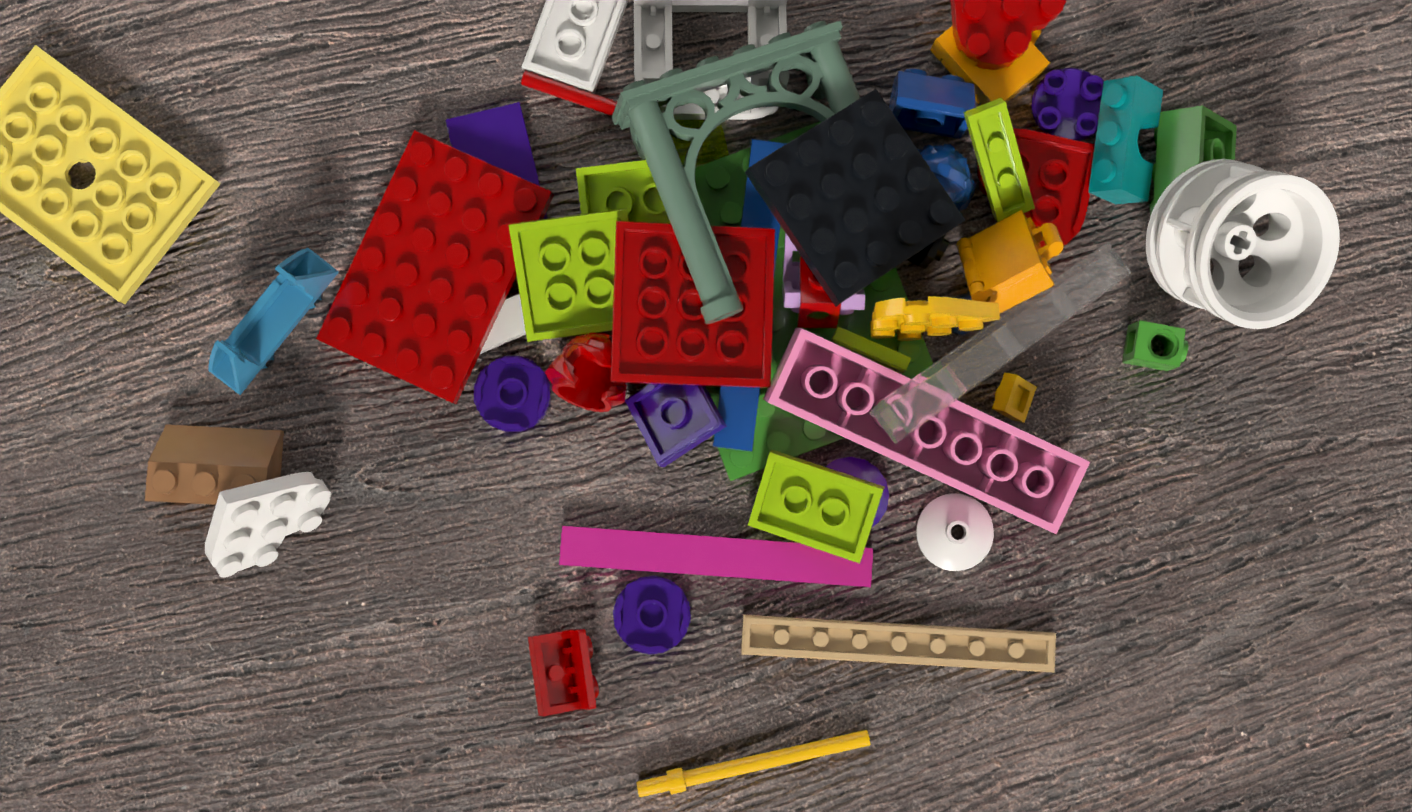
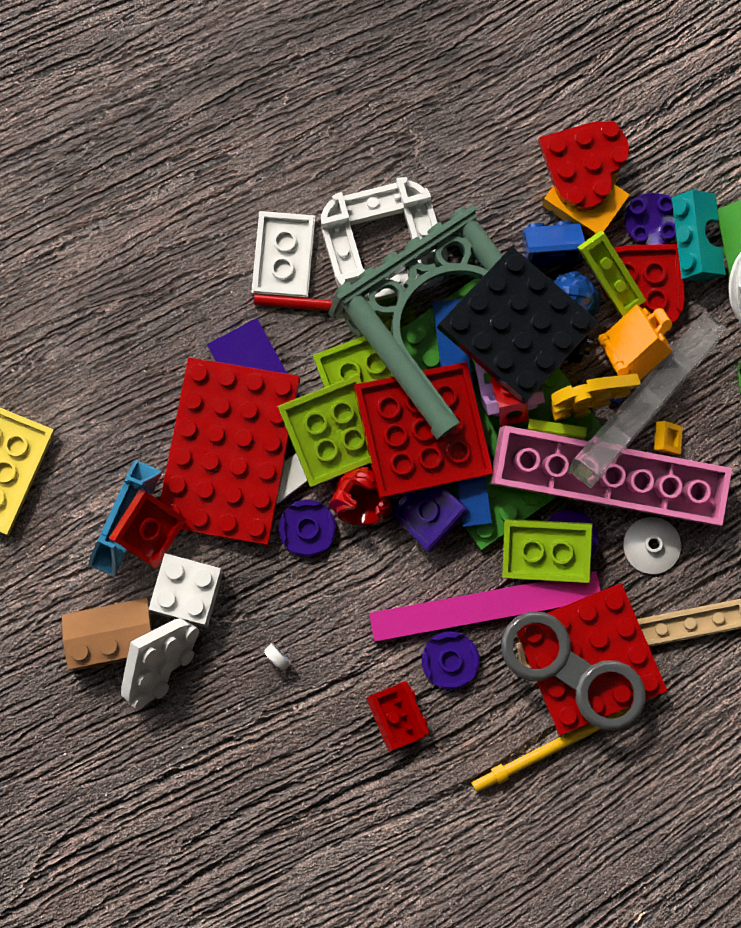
camera: 10 degrees left, 5 degrees down
(295, 342) = (147, 528): none -> red plate
(330, 436) = (186, 590): none -> white piece
(427, 553) = (277, 657): none -> white tile
(807, 677) = (573, 671): none -> dark grey bar
(834, 663) = (599, 630): none -> red plate

